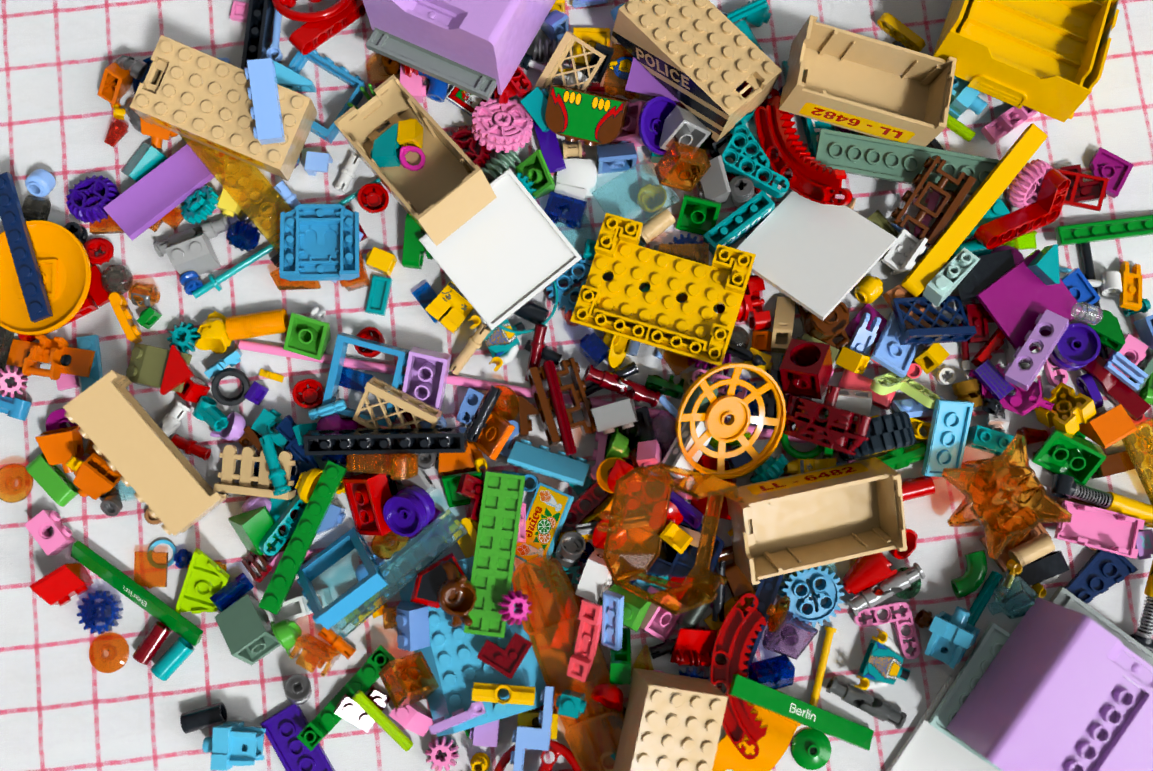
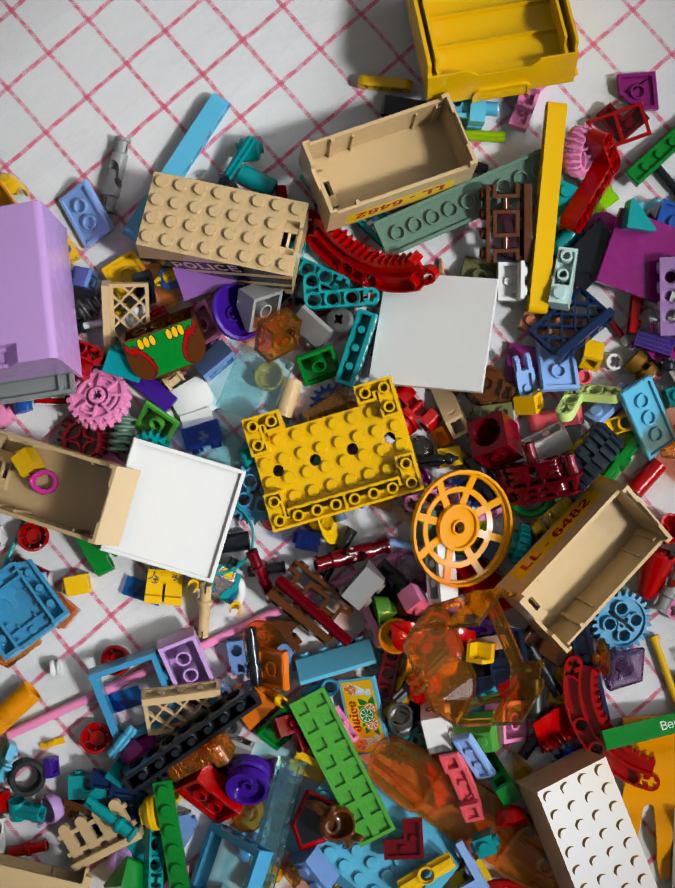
camera: 30 degrees left, 5 degrees up
(307, 336) = (61, 691): bright green slope -> none
(378, 295) = (95, 614): teal tile -> none
(386, 148) = (16, 488): teal slope -> none
(508, 607) = (391, 793): dark pink gear -> none
(665, 387) = (378, 531): dark green plate -> none
(773, 672) = (629, 706): clear blue brick -> none
(868, 289) = (503, 331): yellow head -> none
(978, 317) = (611, 298): dark red plate -> none

